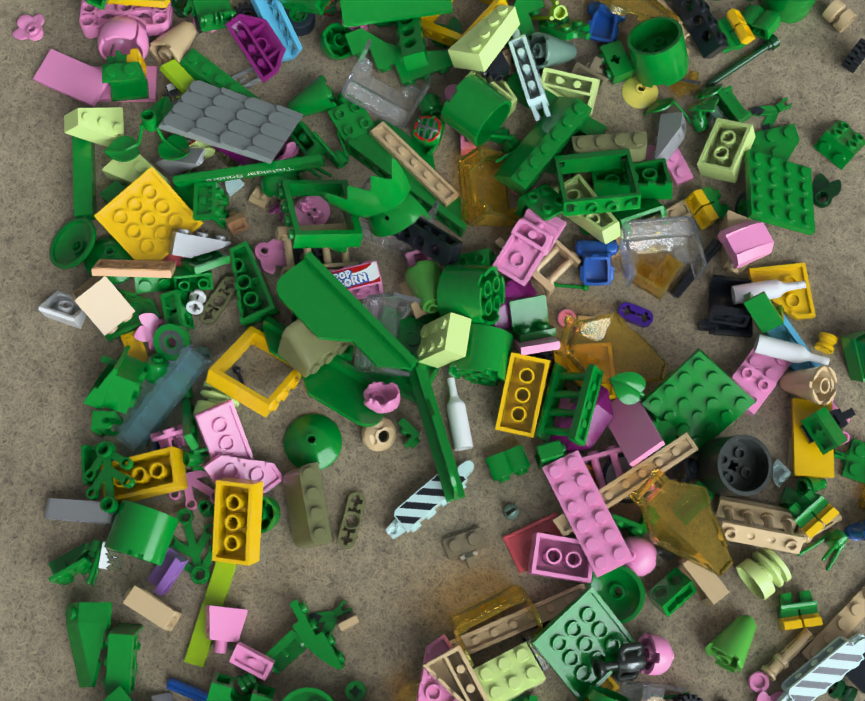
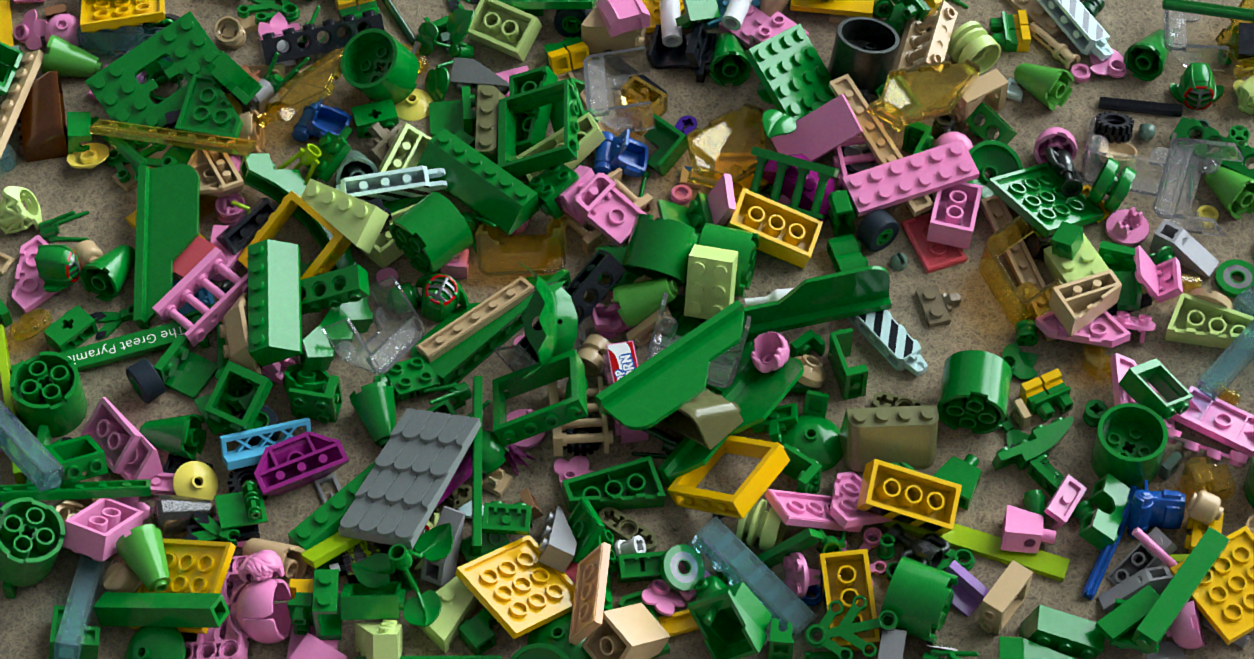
camera: 85 degrees left, 20 degrees down
(127, 97) = (364, 603): none -> green window
(145, 26) = (261, 566): none -> bright pink hair
(197, 539) = (921, 549): none -> pearl dark grey piece
(256, 636) = (1034, 502): none -> green cone
(270, 440) = (803, 470): none -> green bracket
(276, 568) = (963, 473): none -> green torso
(321, 61) = (316, 405): none -> green bracket
(328, 417) = (778, 421): none -> green hinge
(348, 444) = (816, 403): none -> green tile
(355, 577) = (974, 391): none -> green brick
(366, 639) = (1046, 392): none -> green hips
(383, 459) = (851, 380): none -> green panel
(385, 257) = (592, 353): none -> tan wheel
(410, 623) = (1020, 362): none -> green plate
(437, 627) = (1026, 333): none -> green wheel
(524, 661) = (1067, 240): none -> green brick
(536, 489) = (878, 230): none -> black wheel
(614, 302) = (670, 145): none -> green panel
(627, 119) = (453, 114): none -> green bracket
(722, 345) = (729, 61): none -> green cone
(727, 614) = (1014, 91): none -> light aqua tile

